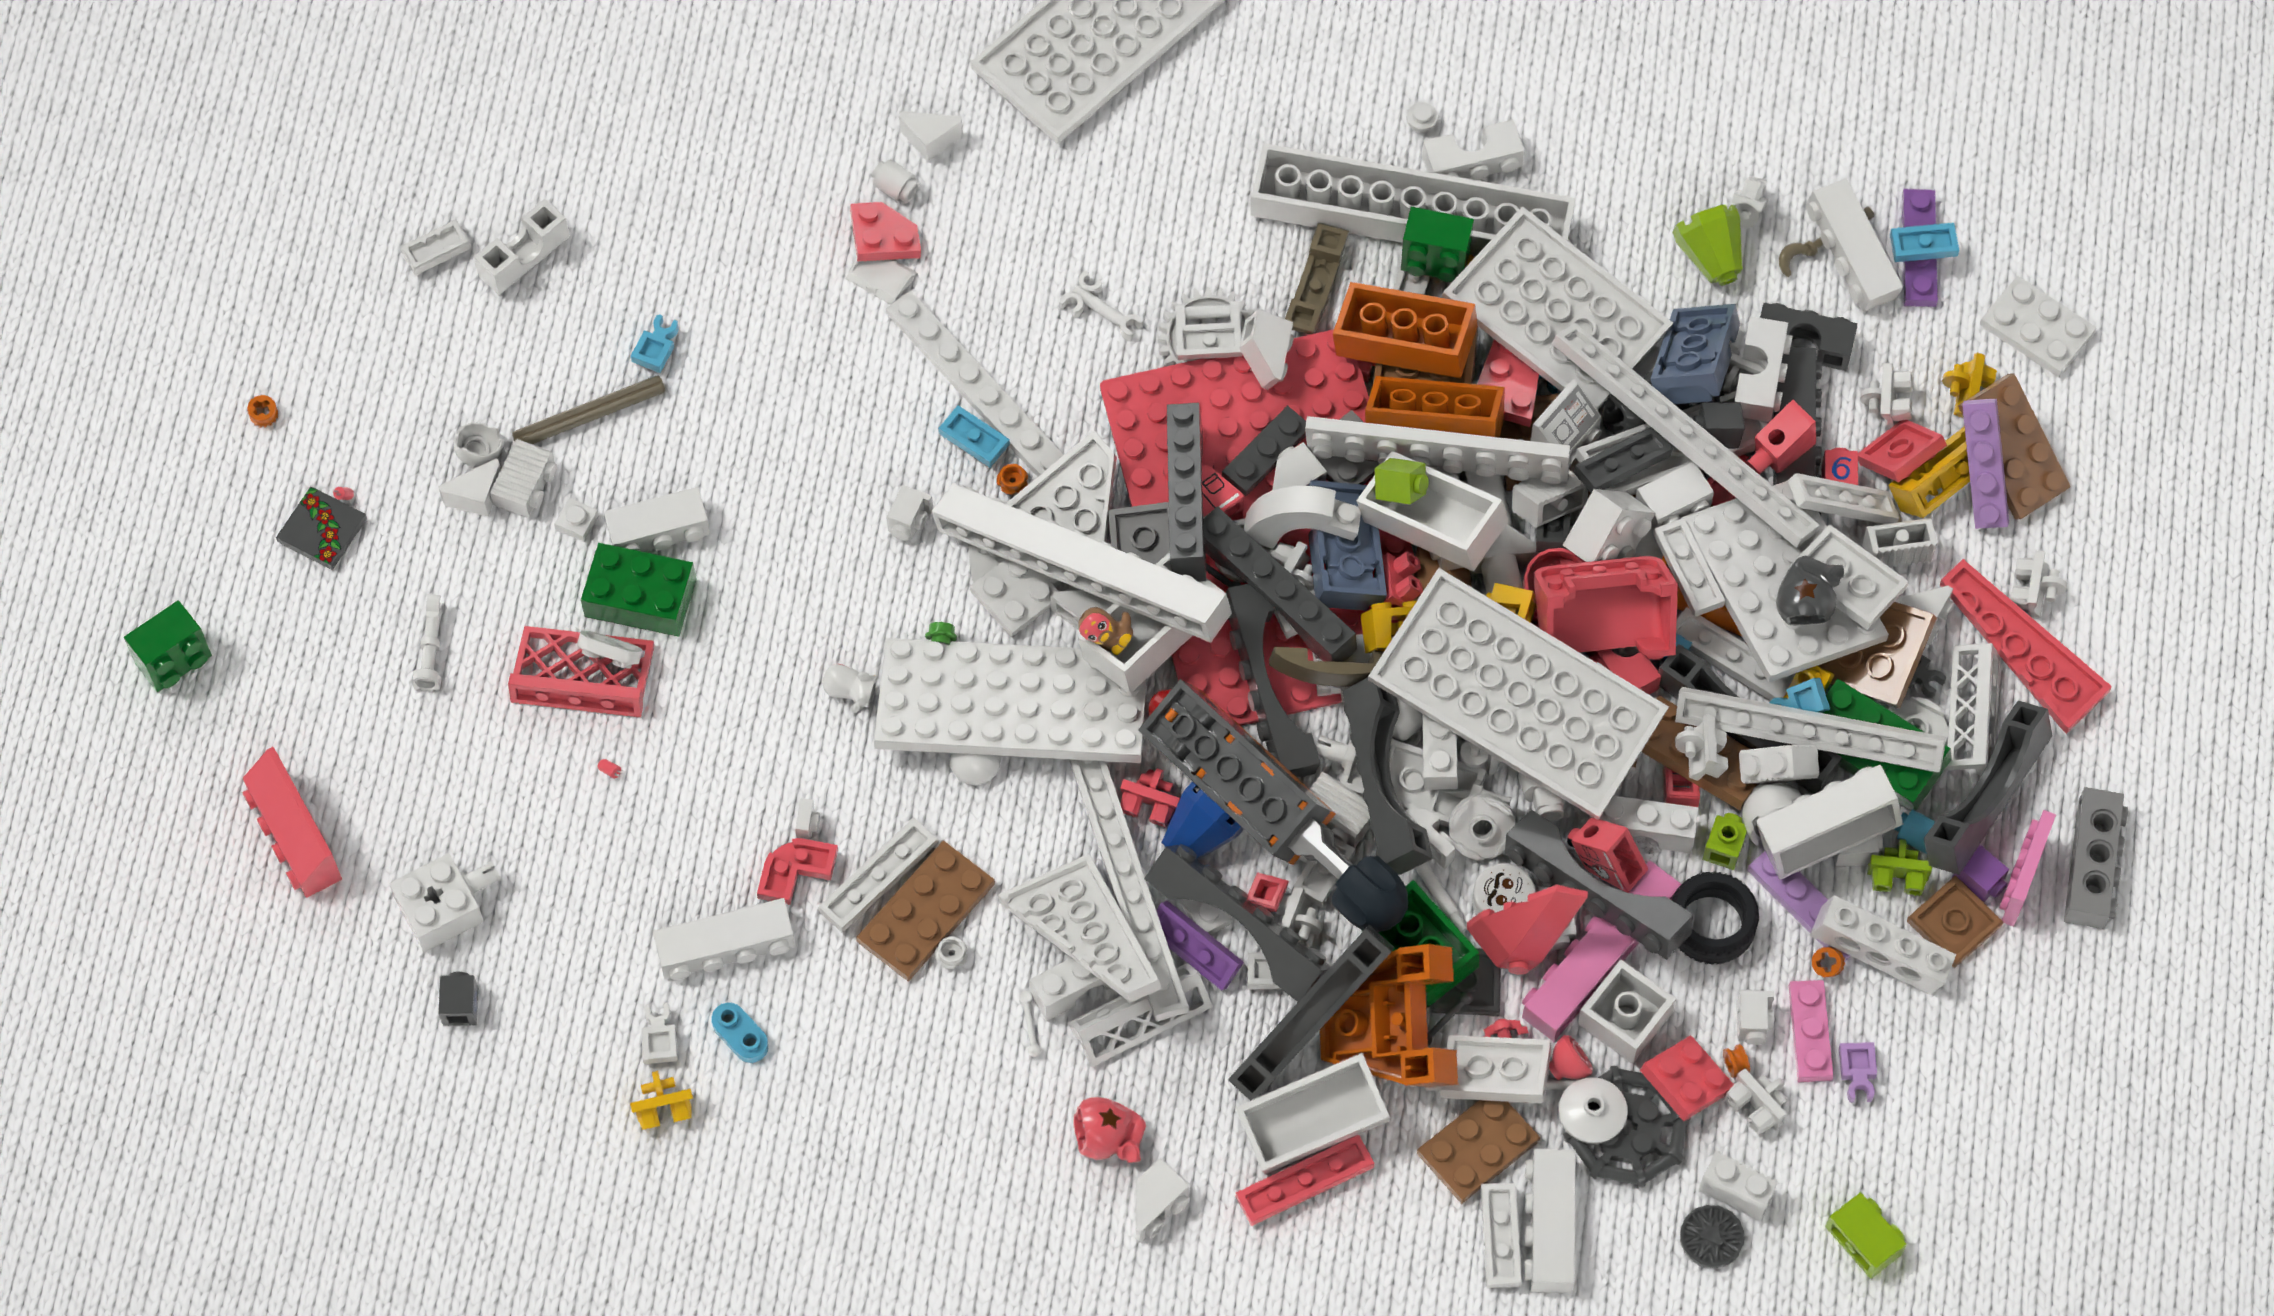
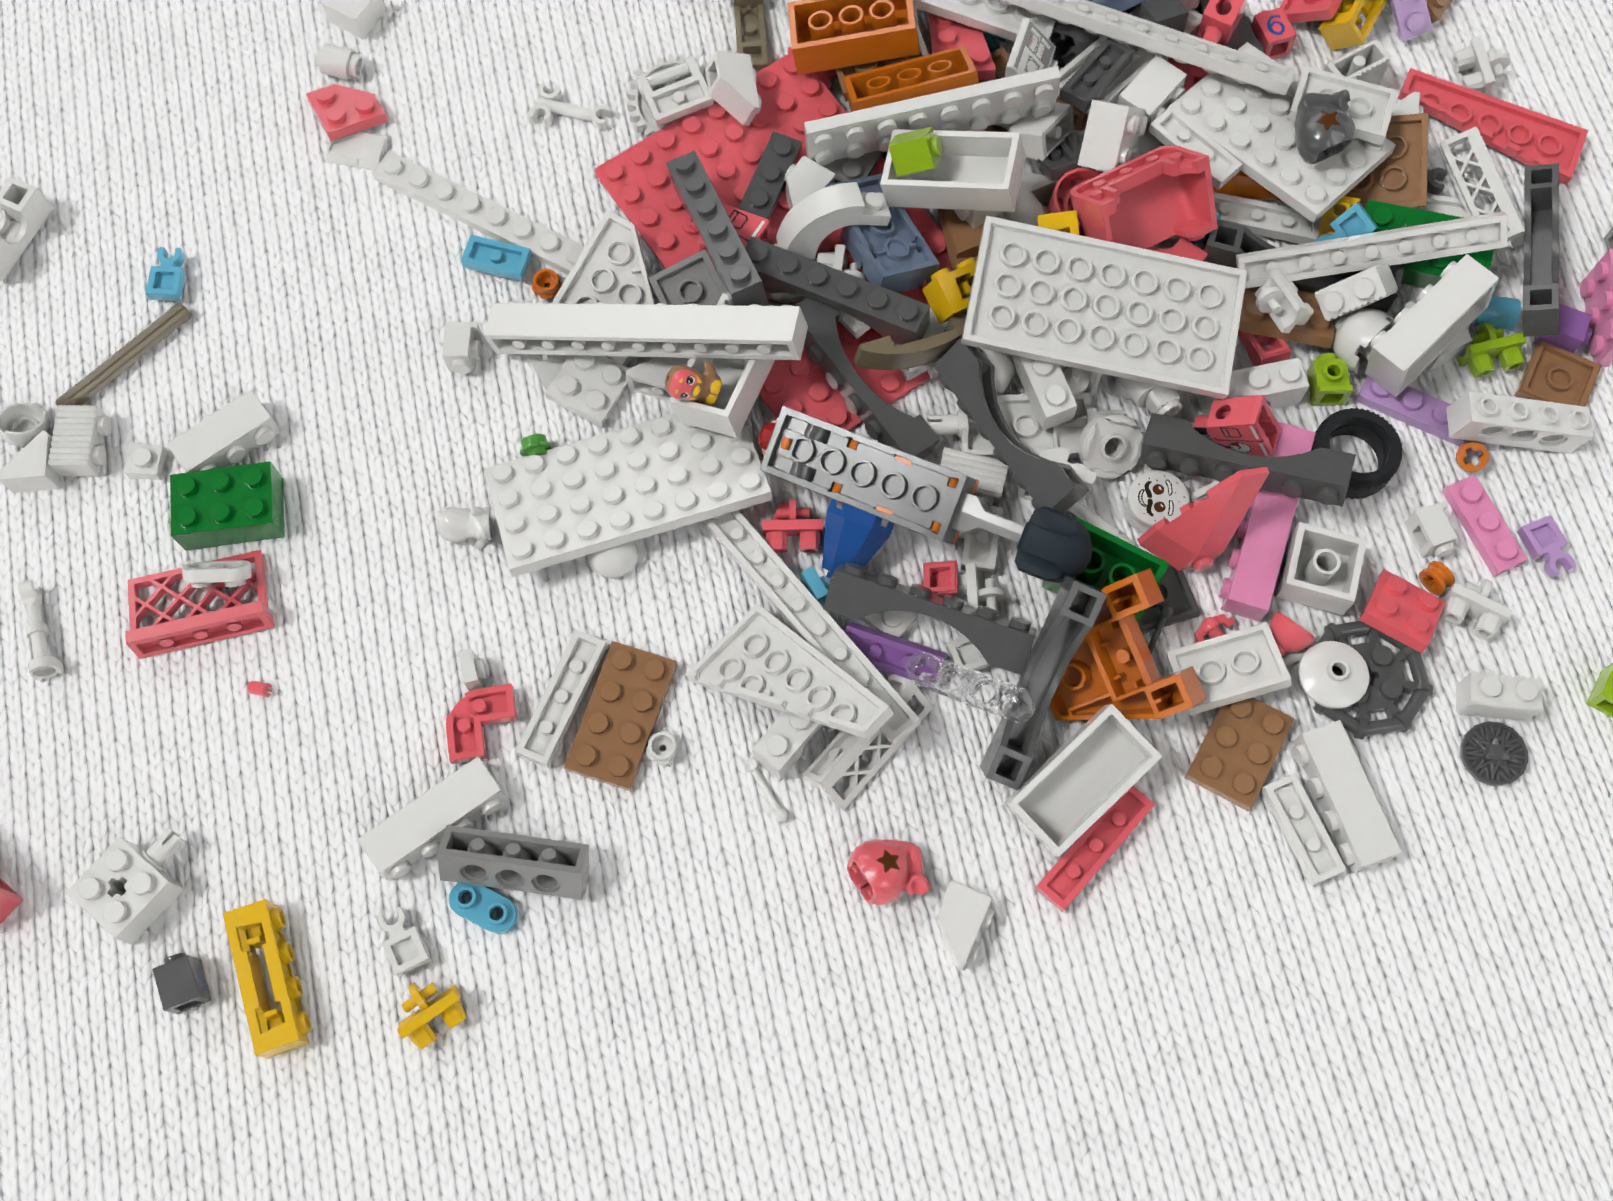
camera: 20 degrees left, 5 degrees up
(533, 1074) = (266, 1026): none -> yellow brick
(781, 1001) = (513, 862): none -> light grey brick
(1147, 854) = (815, 584): none -> medium azure plate
(1249, 992) = (968, 689): none -> clear beam
(1399, 578) = (947, 254): coral hips -> none
(1843, 499) = (1292, 47): white plate -> none

